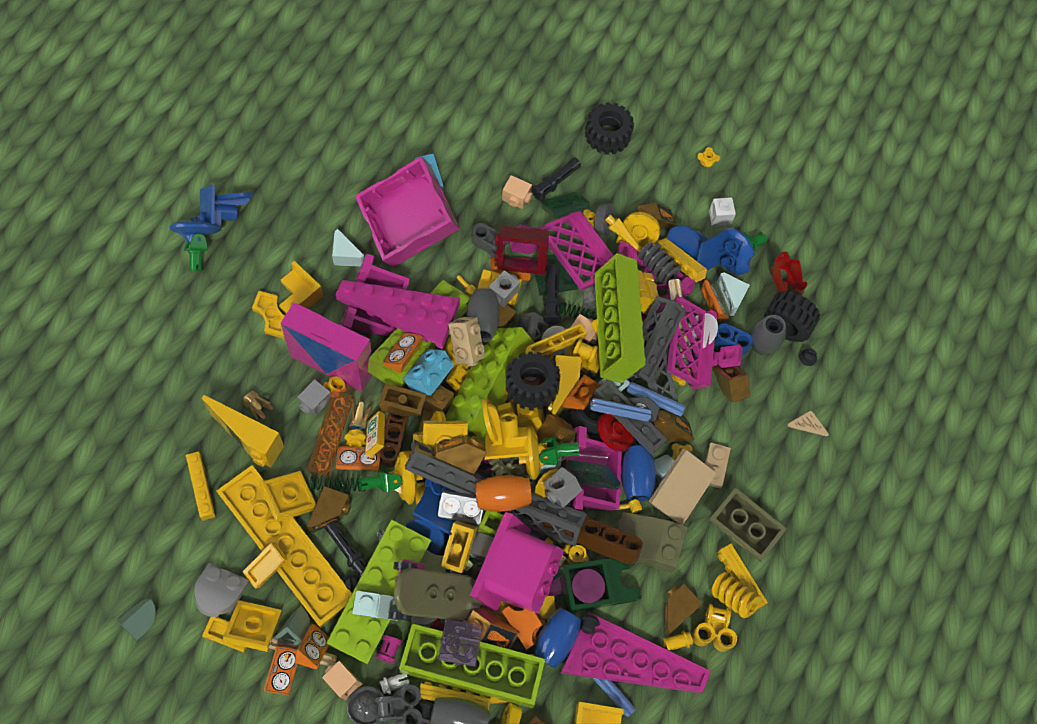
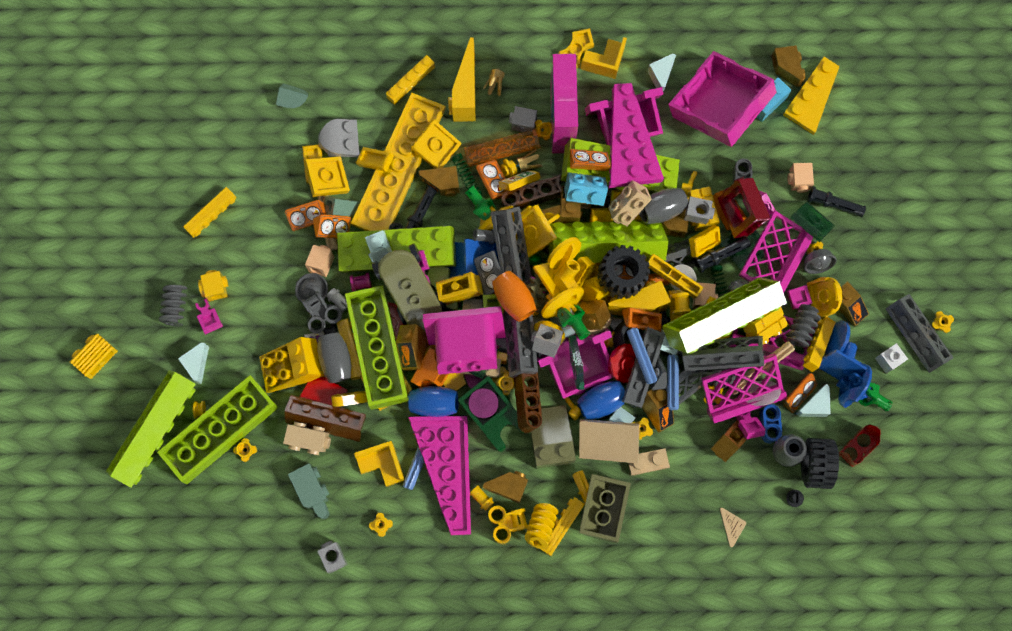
camera: 70 degrees right, 10 degrees up
(401, 401) = (551, 182): pearl gold slope -> none
(405, 146) = (787, 64): none -> pearl gold slope
(423, 487) = (484, 235): none -> dark grey pin
(446, 145) = (811, 99): none -> yellow wing
(460, 643) = (385, 327): piece -> none
(461, 452) = (529, 247): pearl gold slope -> none
(533, 301) = (705, 241): none -> yellow tile
(589, 623) = (455, 420): black piece -> none
(609, 116) = (921, 208): black tyre -> none
(618, 228) = (814, 277): yellow piece -> none
(709, 180) = (918, 333): none -> dark grey fence
(713, 536) = (582, 484): none -> yellow axle

